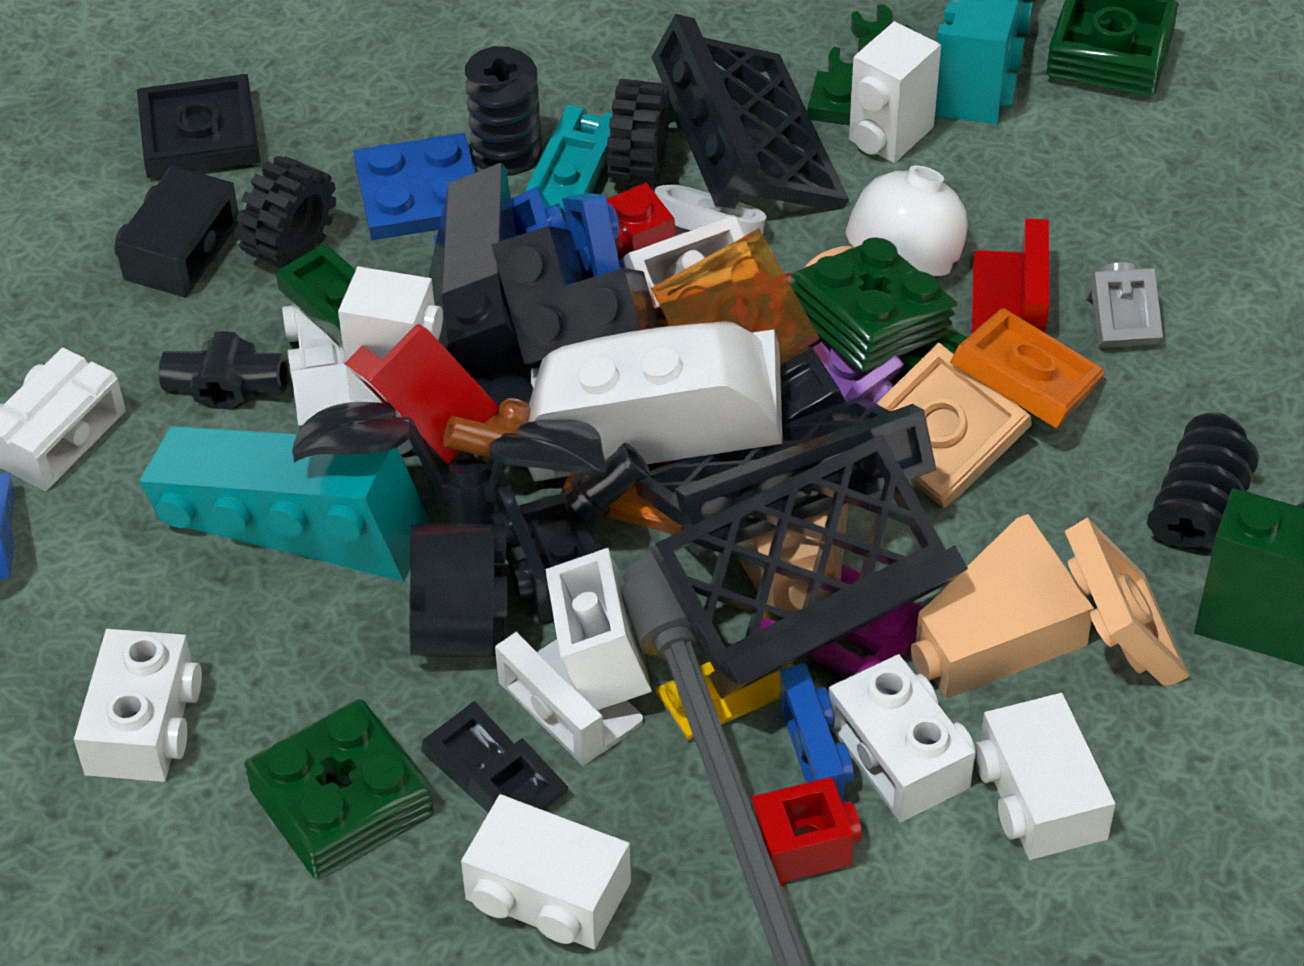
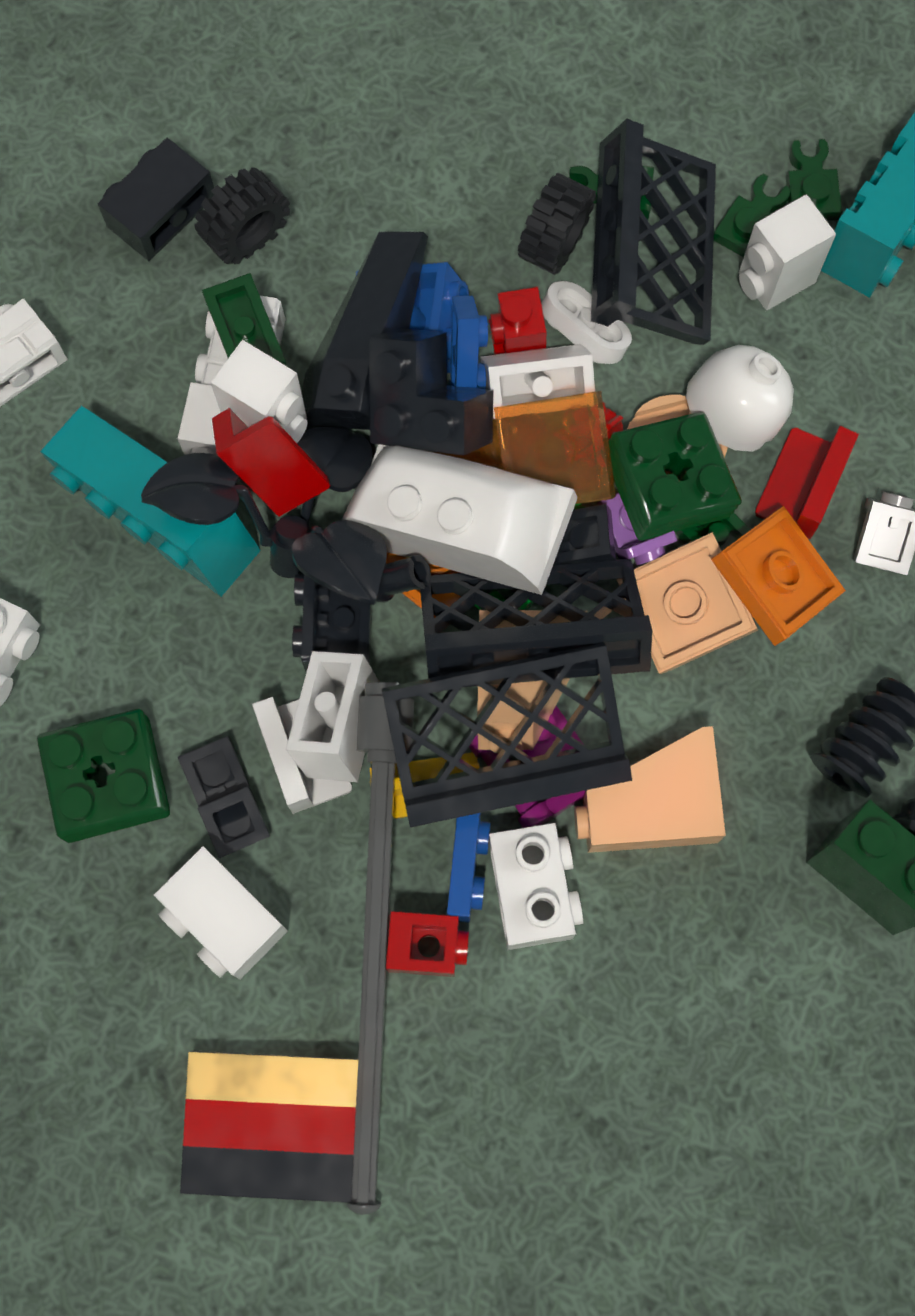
camera: 20 degrees right, 25 degrees up
(198, 125) = (211, 89): black plate -> none
(223, 371) = (147, 353): black axle -> none
(408, 183) = (360, 202): blue plate -> none
(457, 589) = (240, 638): black brick -> none
(476, 436) = (317, 511): dark orange arm -> none
(503, 109) = (452, 165): black piece -> none
(573, 155) = (492, 232): teal plate -> none
(1044, 777) = (625, 961): white brick -> none
(1125, 604) = (752, 838): light nougat plate -> none

